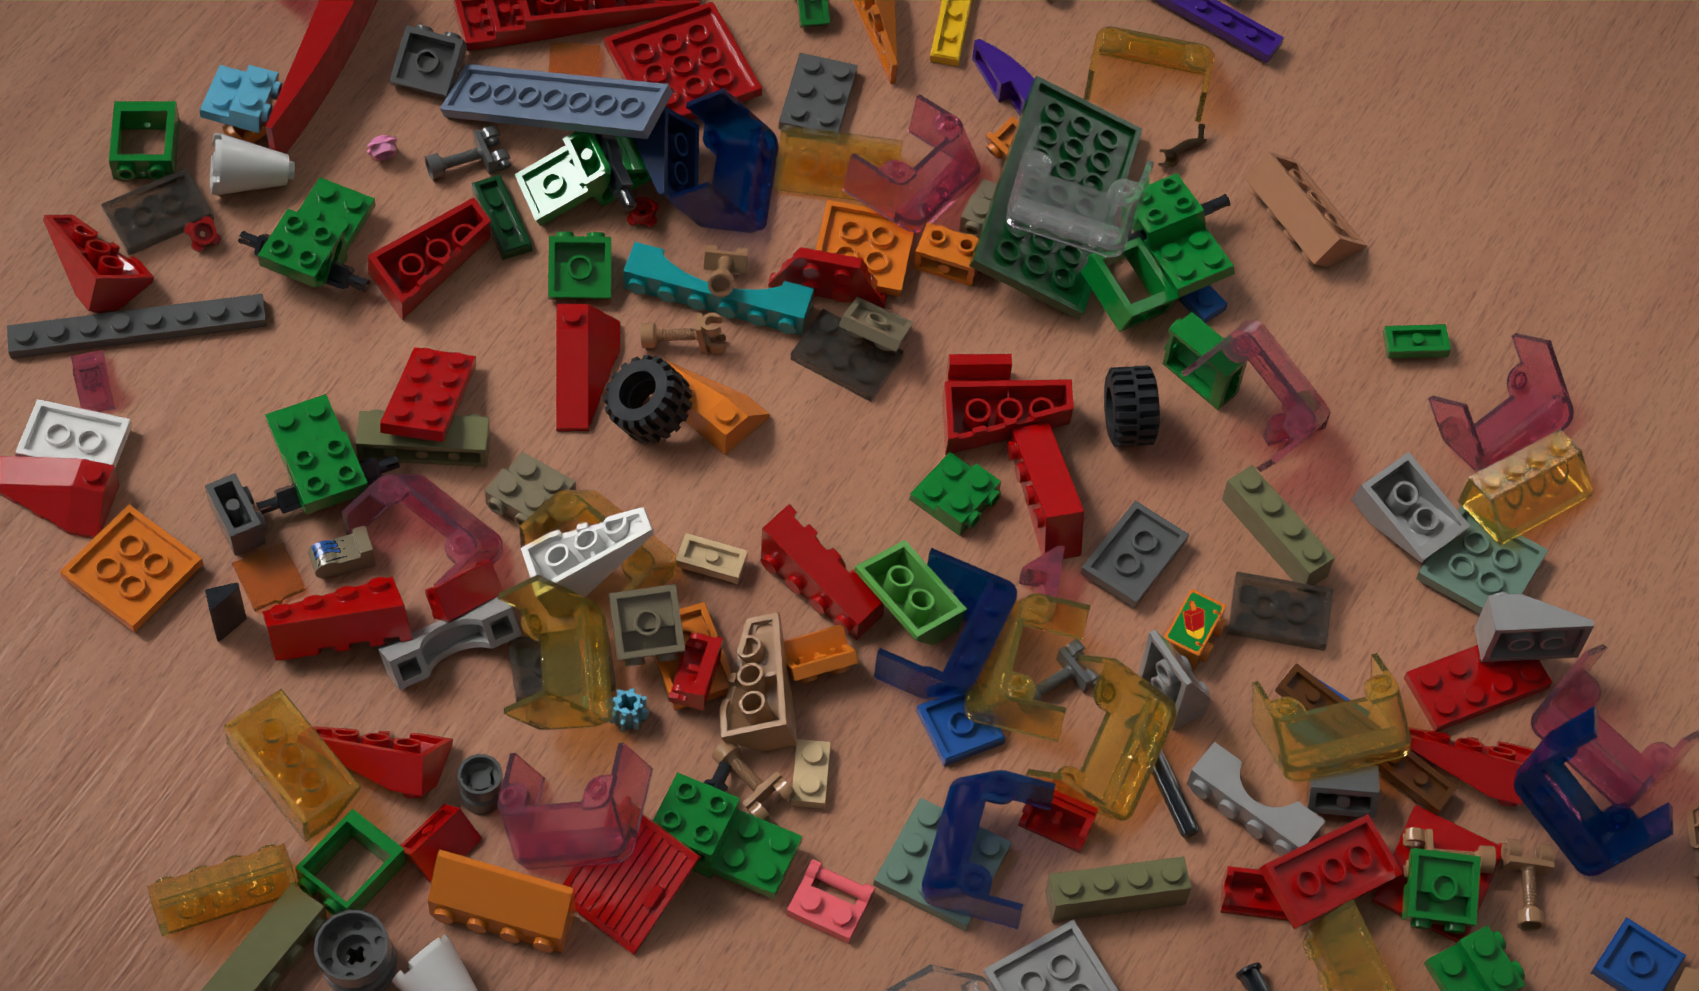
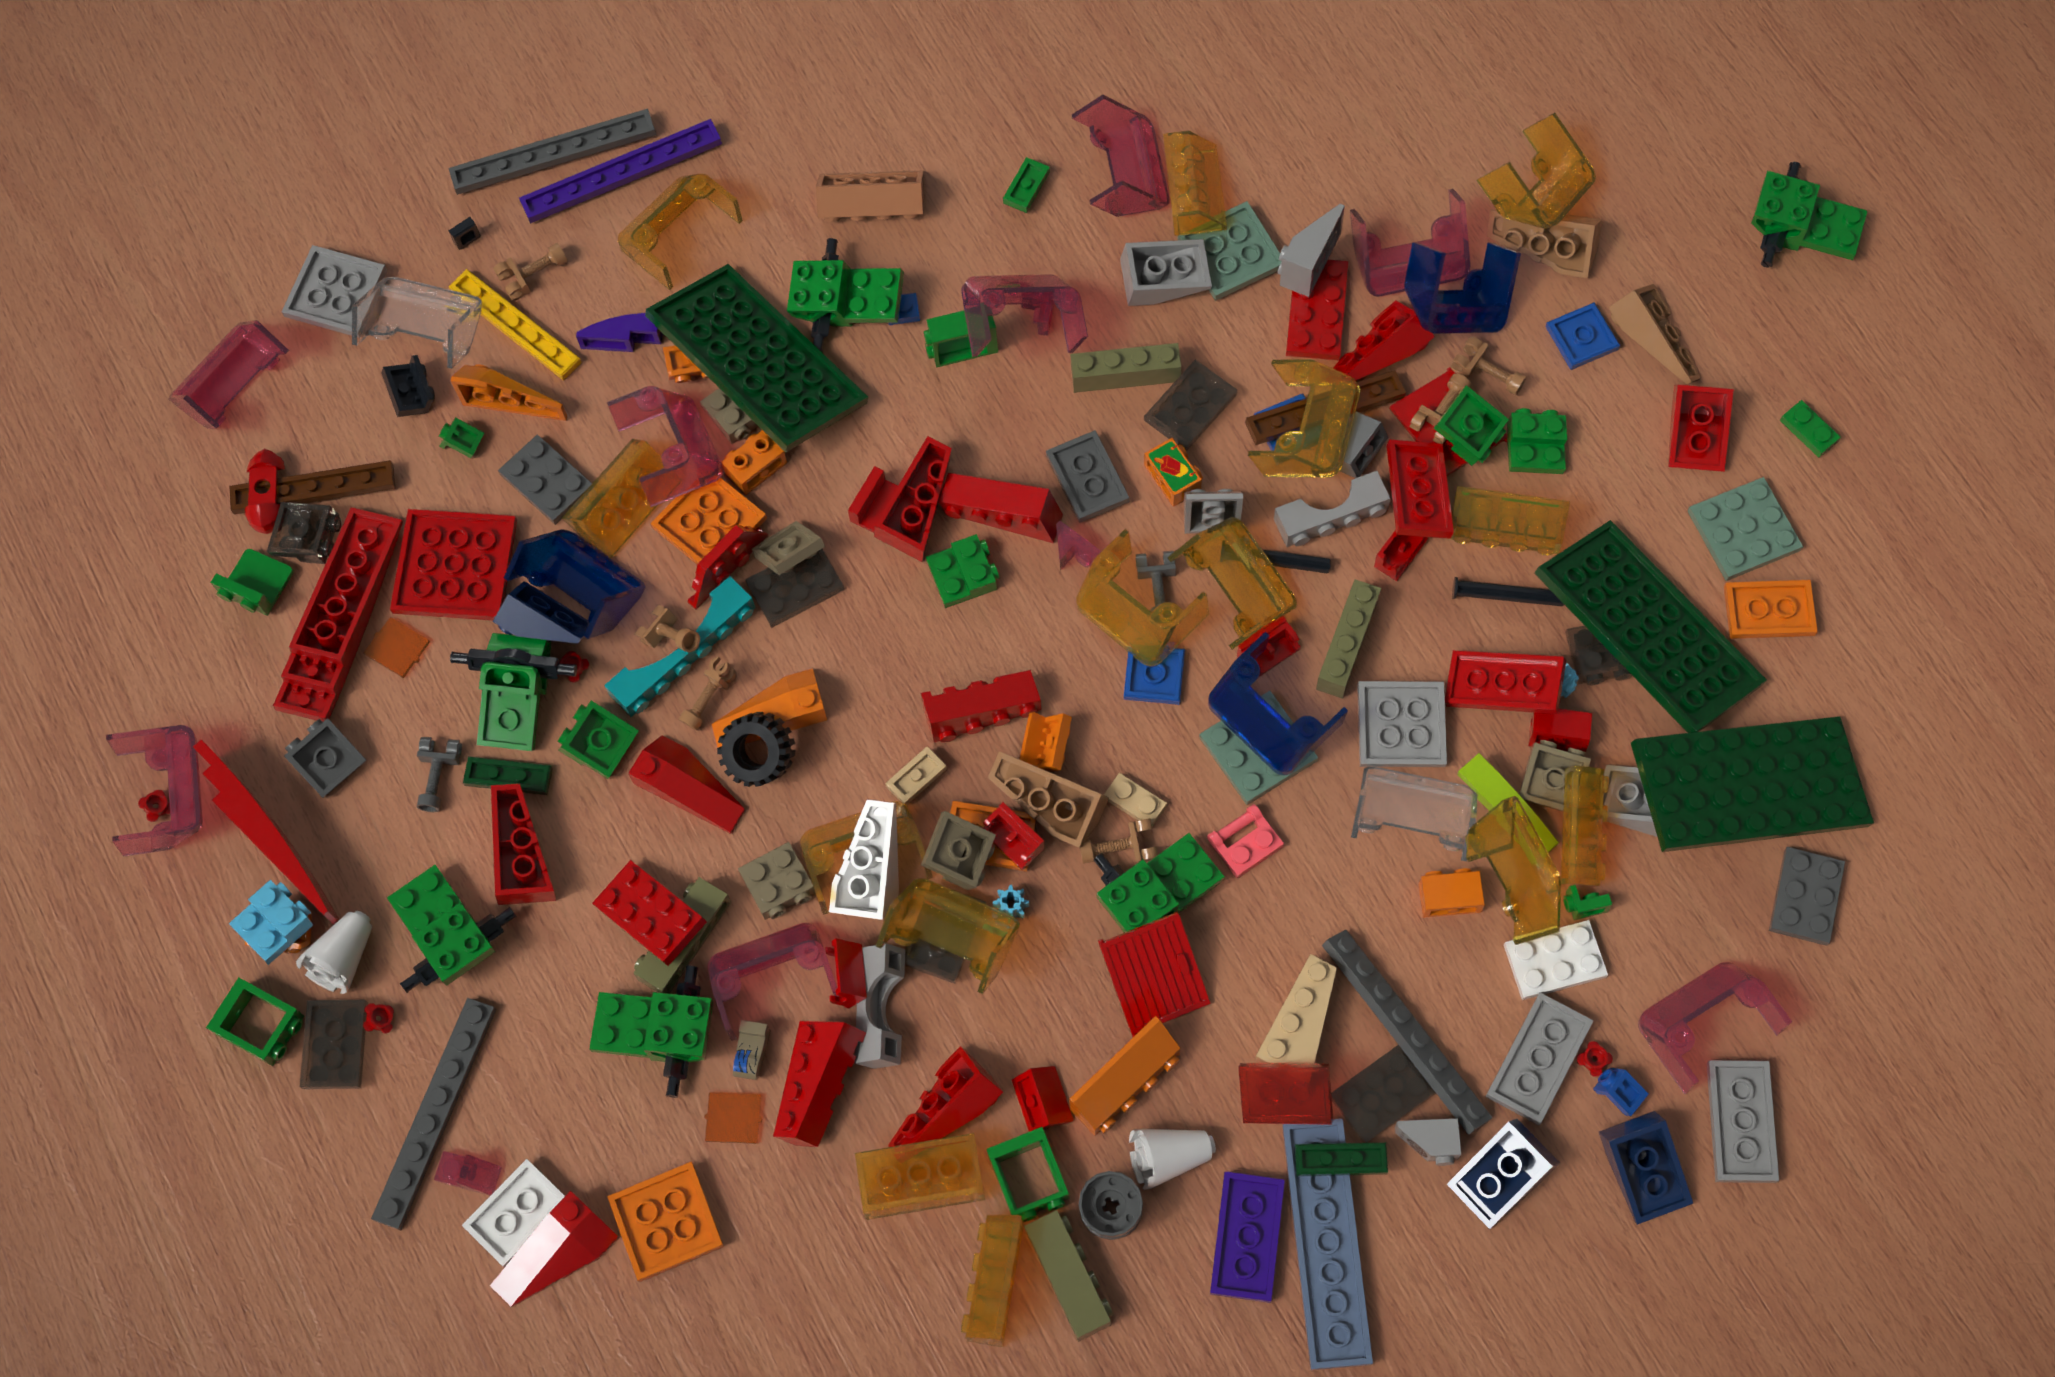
camera: 50 degrees left, 10 degrees up
(95, 268) = (361, 1120): red wedge -> none
(225, 608) = (752, 1165): black slope -> none
(235, 514) = (669, 1115): dark grey brick -> none
(382, 147) = (385, 834): bright pink plate -> none
(480, 783) = (1015, 1043): dark grey wheel -> none
(557, 101) = (441, 675): sand blue plate -> none
(580, 833) = (1121, 975): clear pink windscreen -> none
(913, 593) = (1037, 646): bright green slope -> none
(988, 606) = (1086, 604): clear blue windscreen -> none
(1072, 211) = (788, 356): clear windscreen -> none
(1113, 298) = (862, 367): green window -> none
(1131, 406) = (972, 407): black tyre -> none
(1172, 154) = (763, 257): dark brown piece -> none

